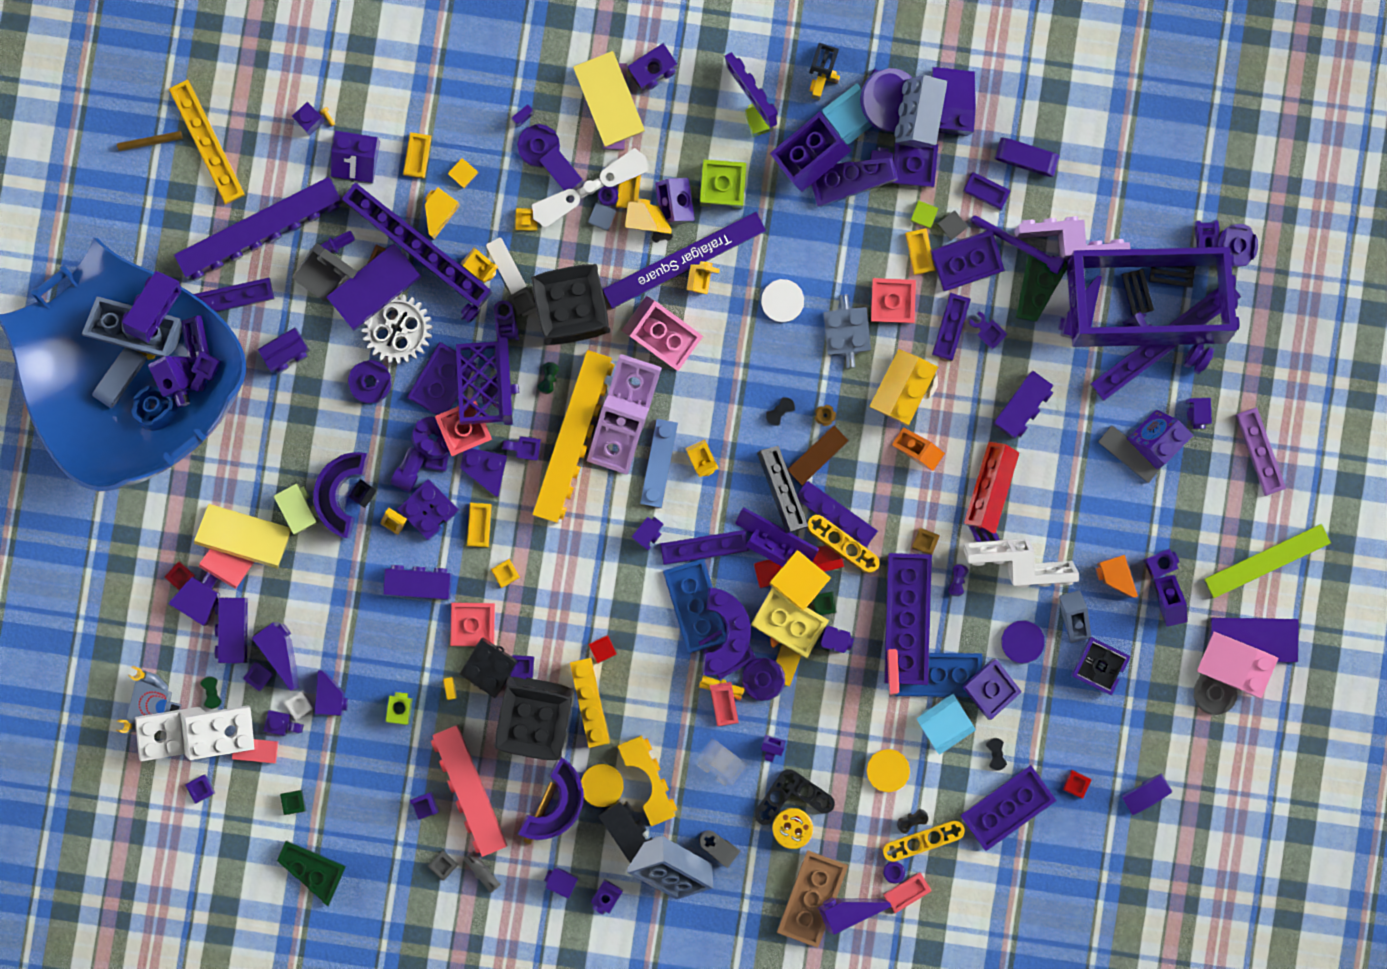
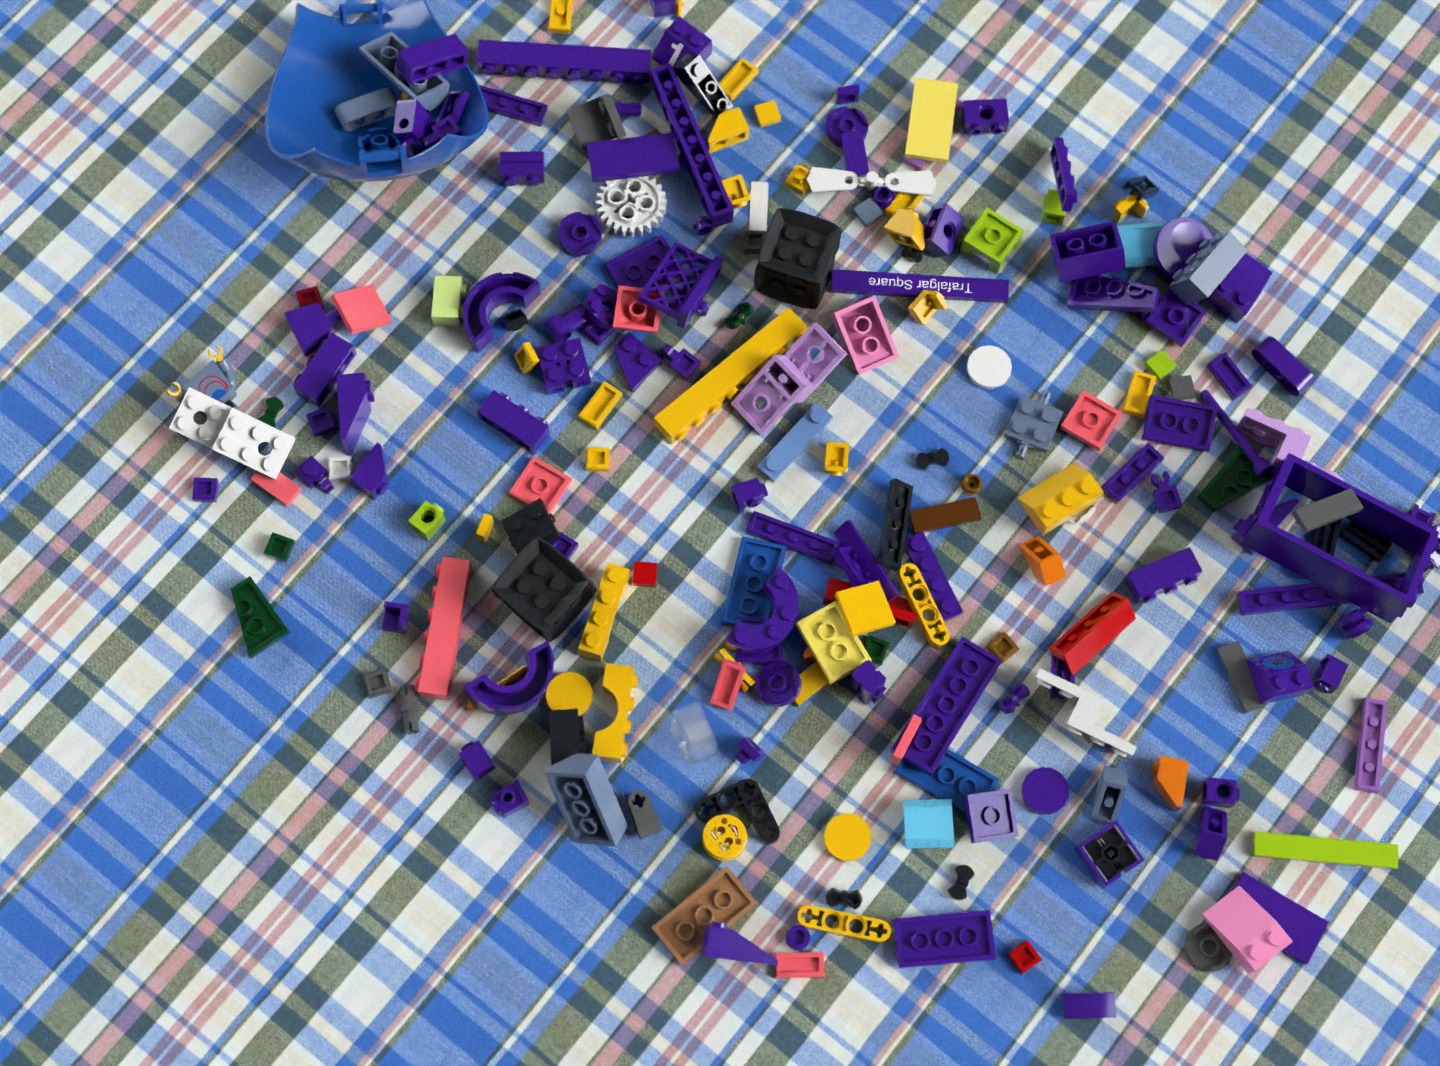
camera: 30 degrees right, 15 degrees down
(242, 536) = (386, 296): light yellow tile -> none
(393, 182) = (702, 84): none -> black slope
(505, 323) = (730, 250): dark purple piece -> none
(1130, 286) = (1327, 510): none -> dark grey tile

